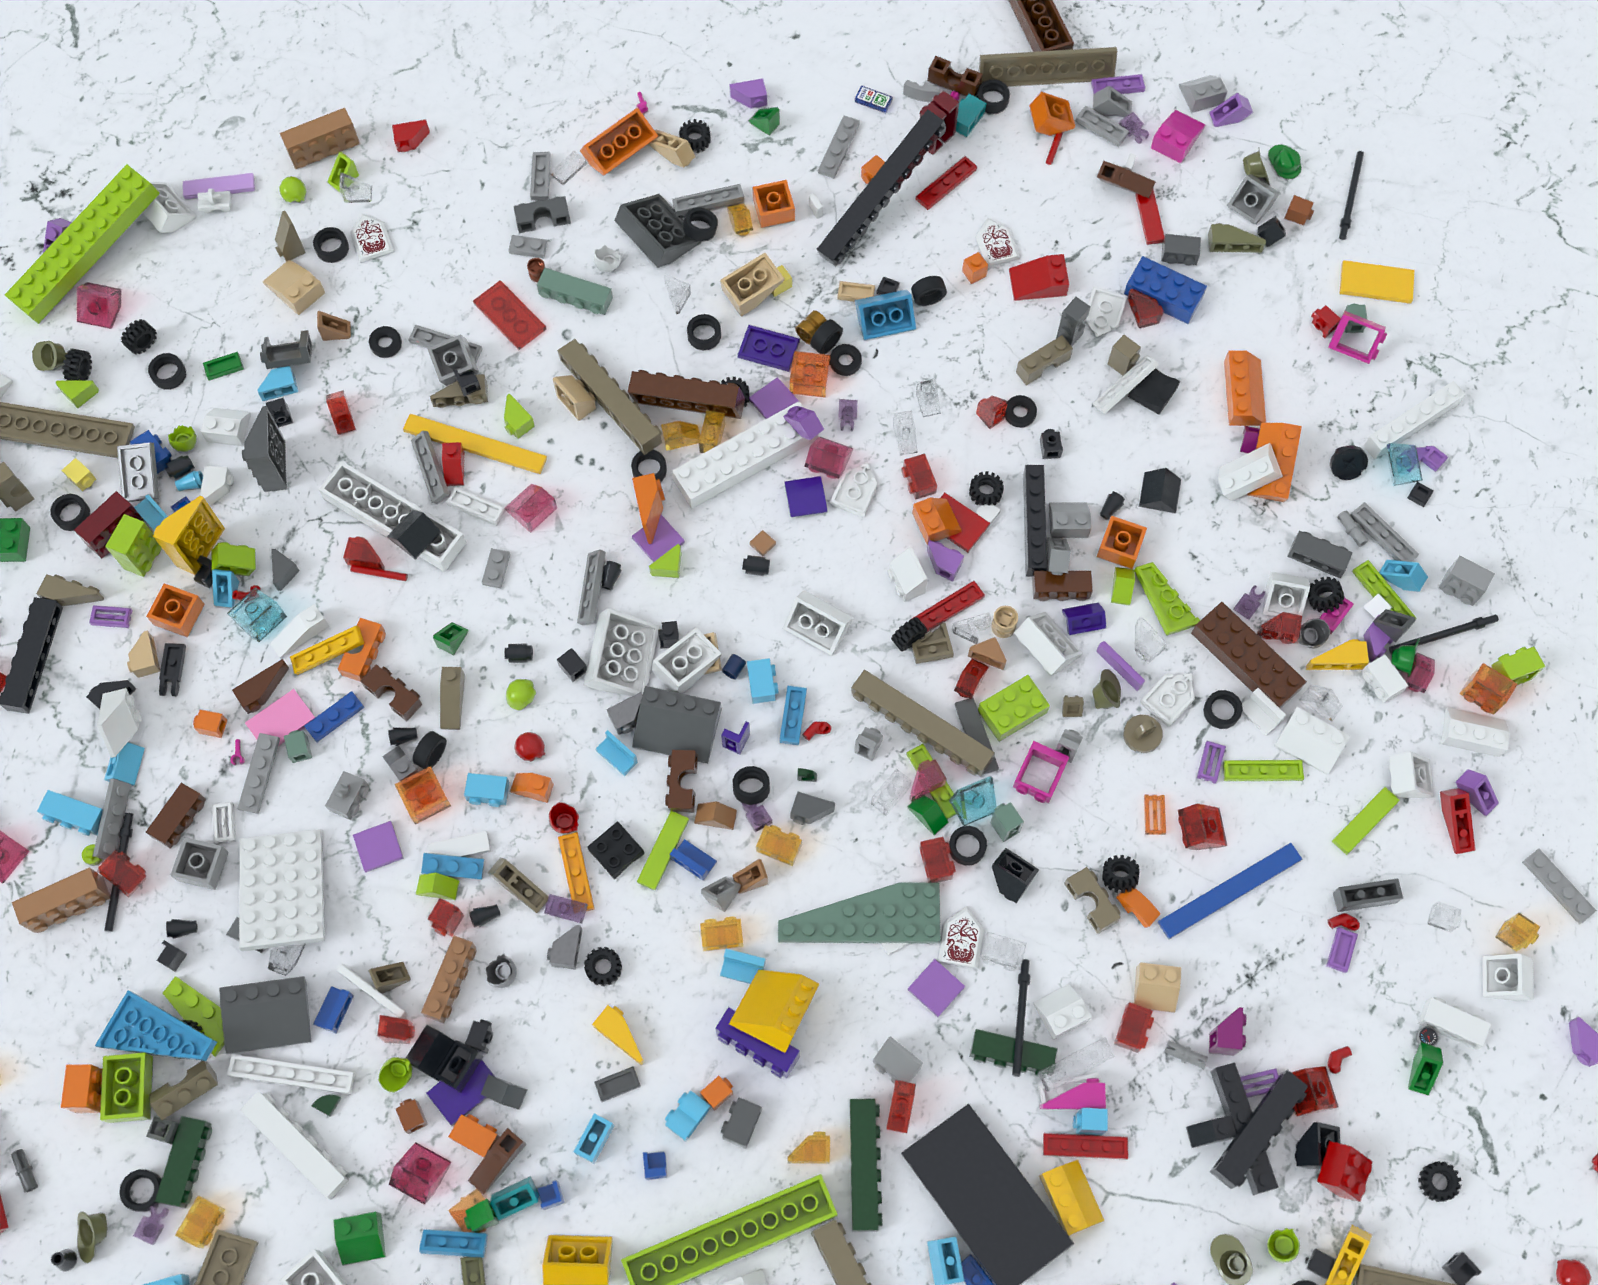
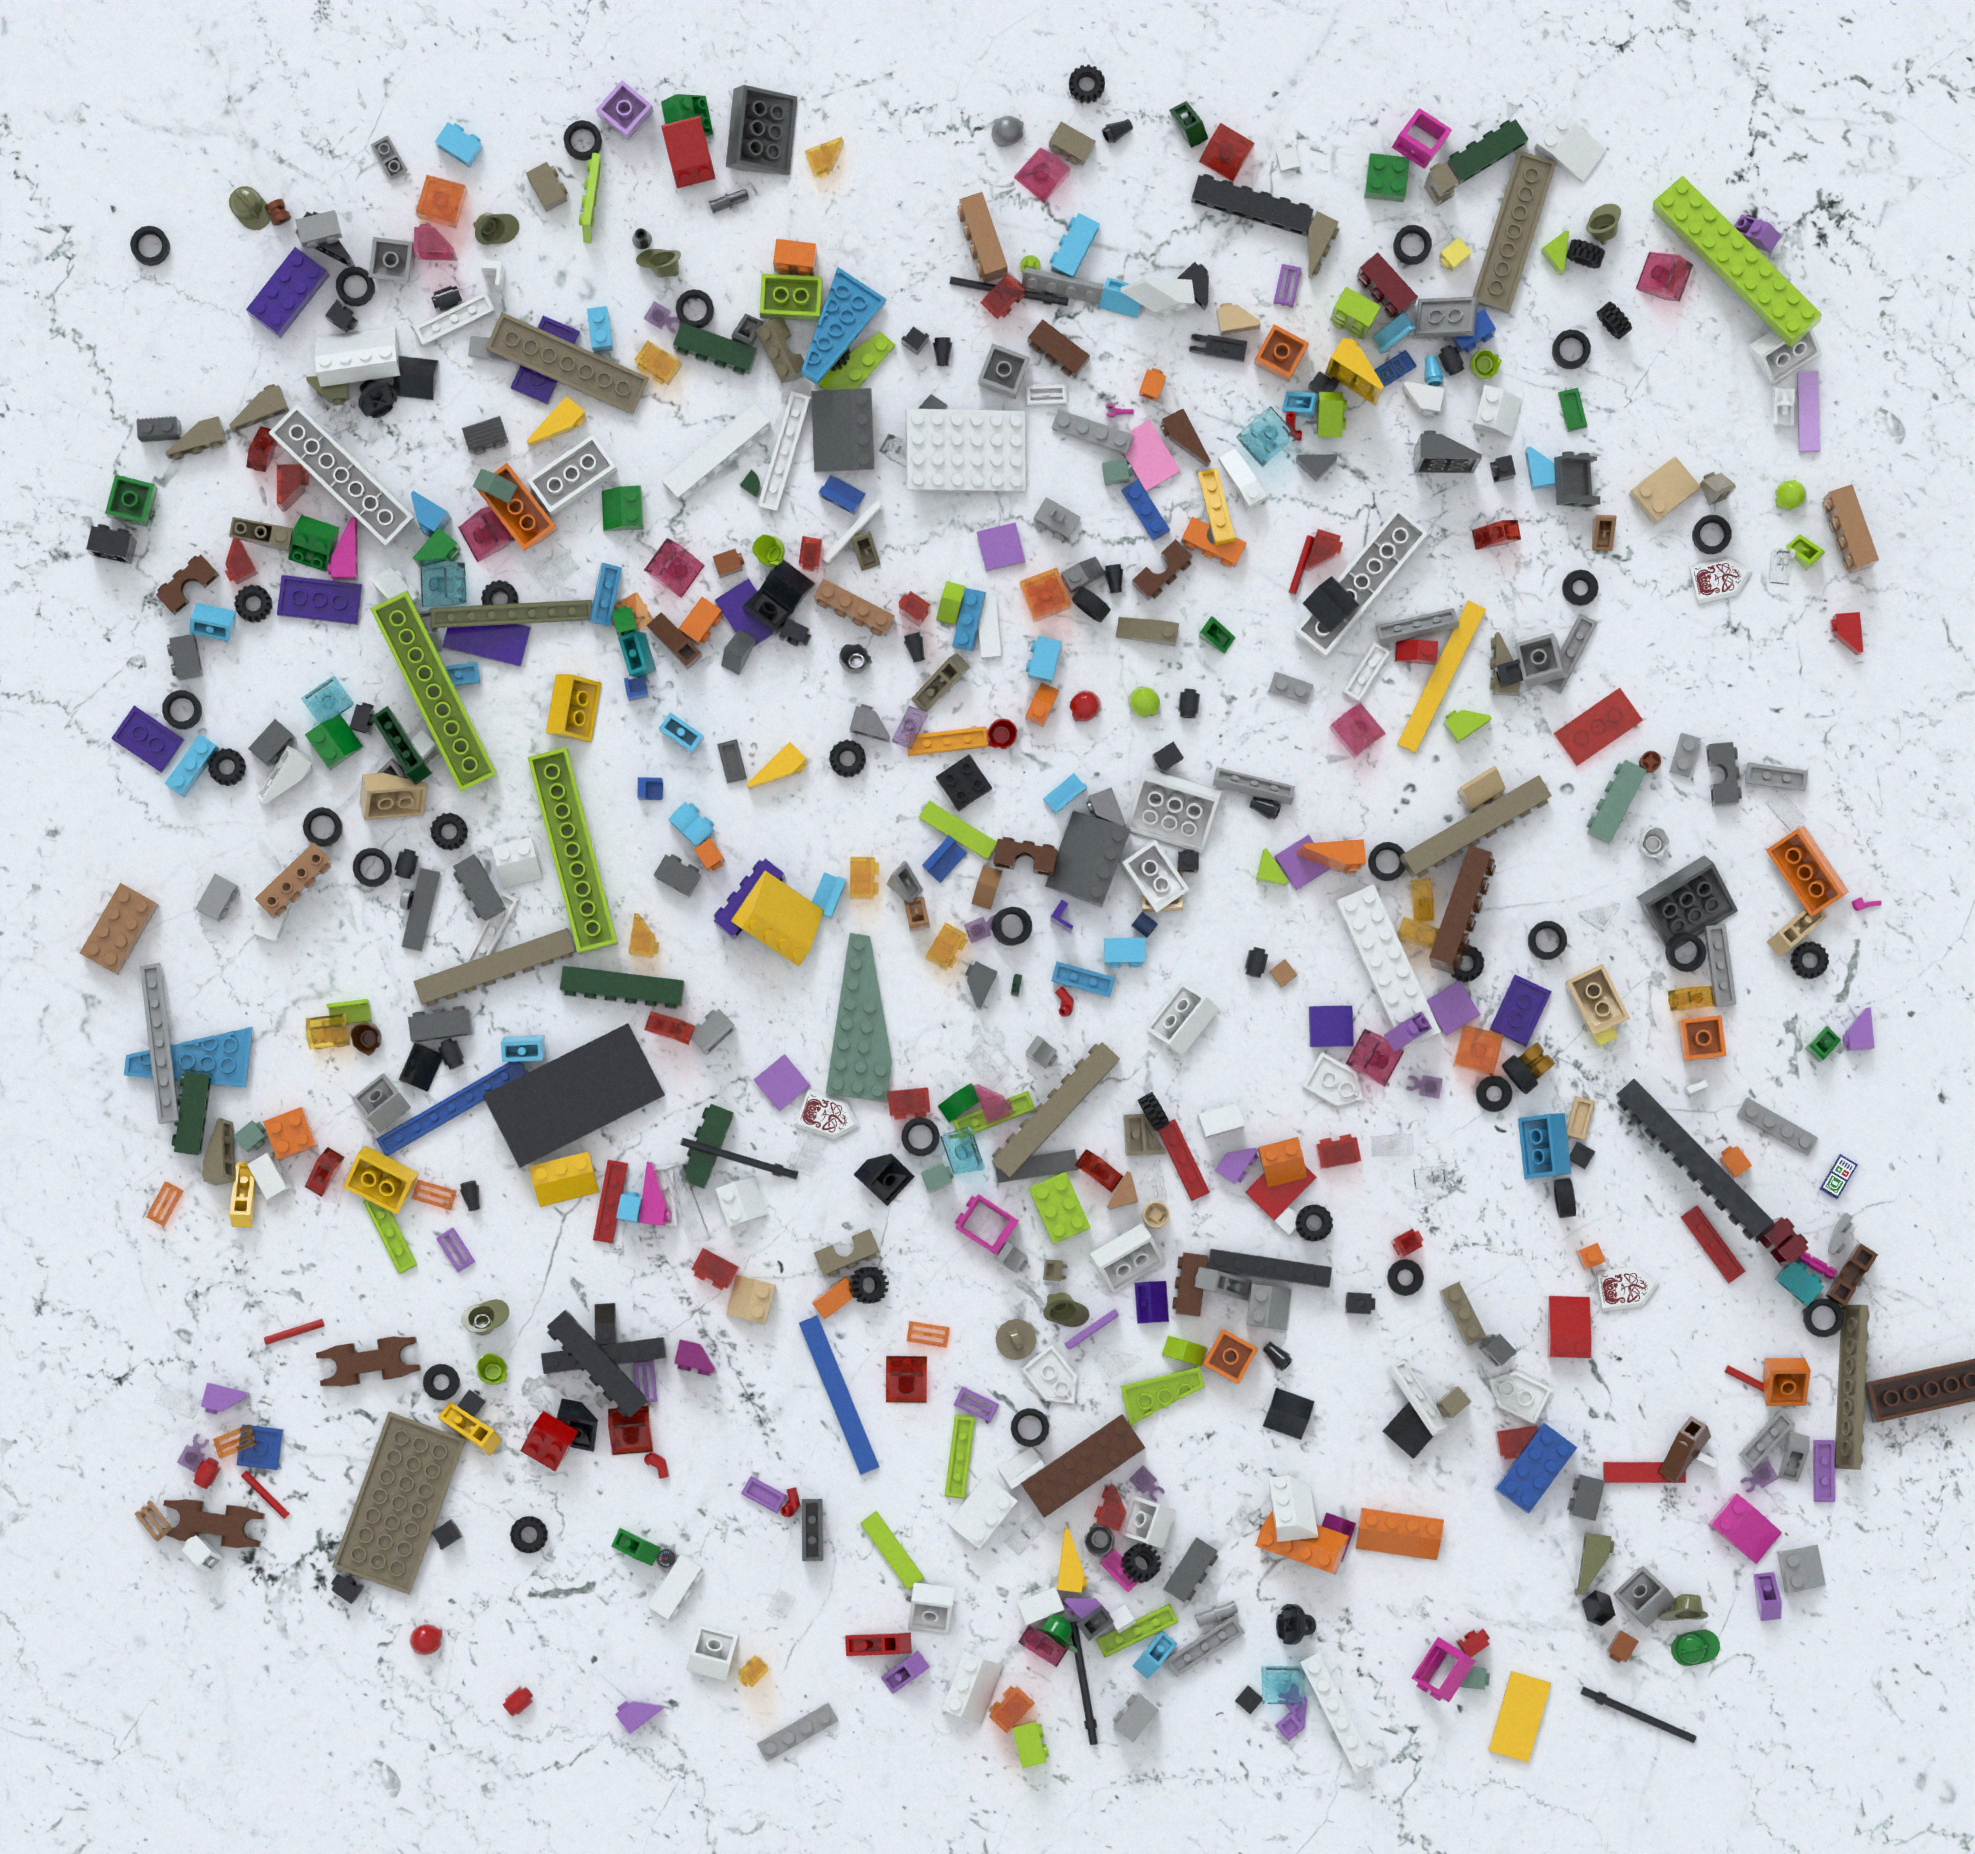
camera: 95 degrees right, 15 degrees up
(1186, 1054) = (682, 1315): light grey pin -> none

